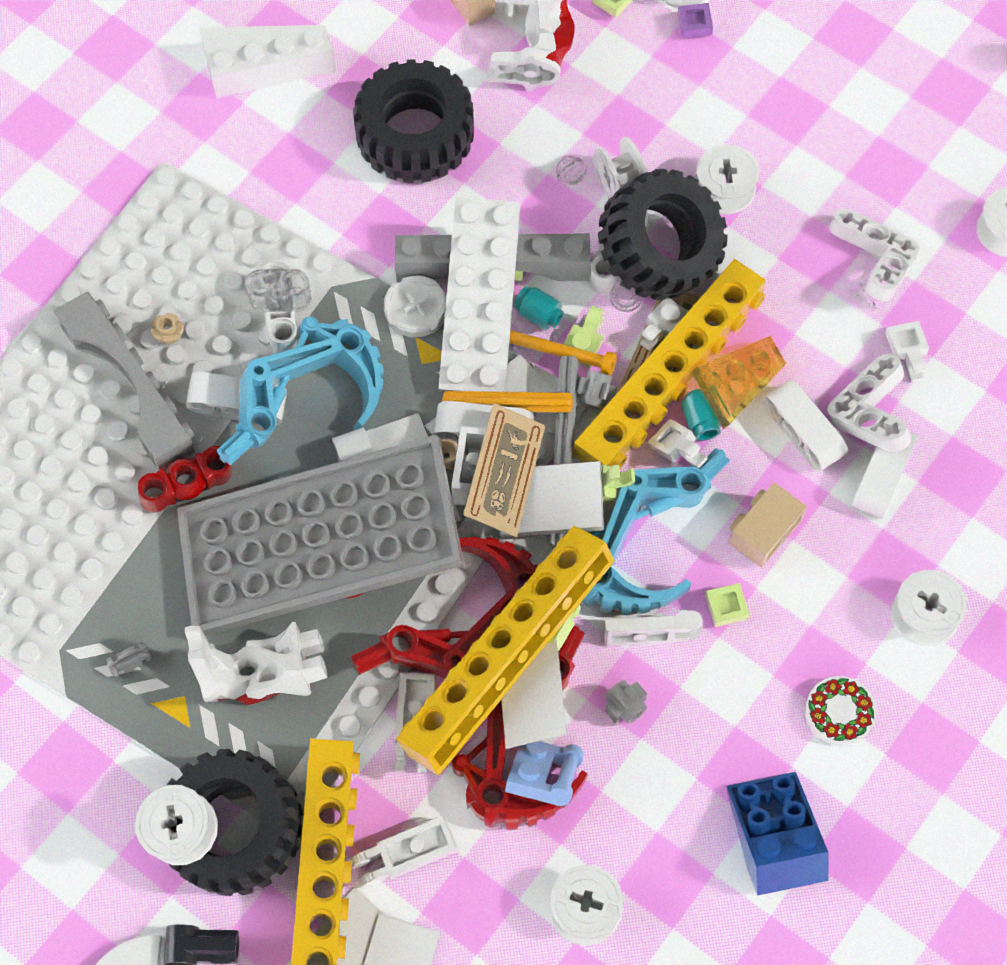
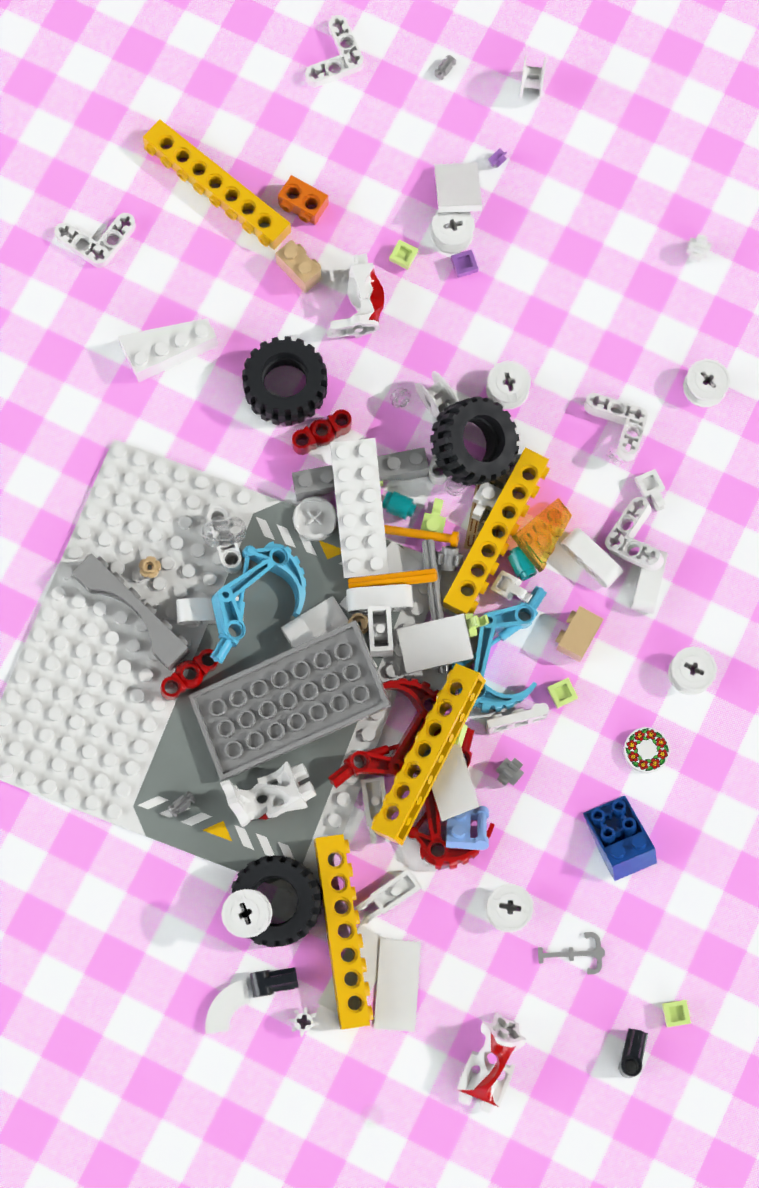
camera: 15 degrees left, 10 degrees up
(436, 197) = (316, 440): none -> red piece
(504, 470) = (402, 631): sticker -> none

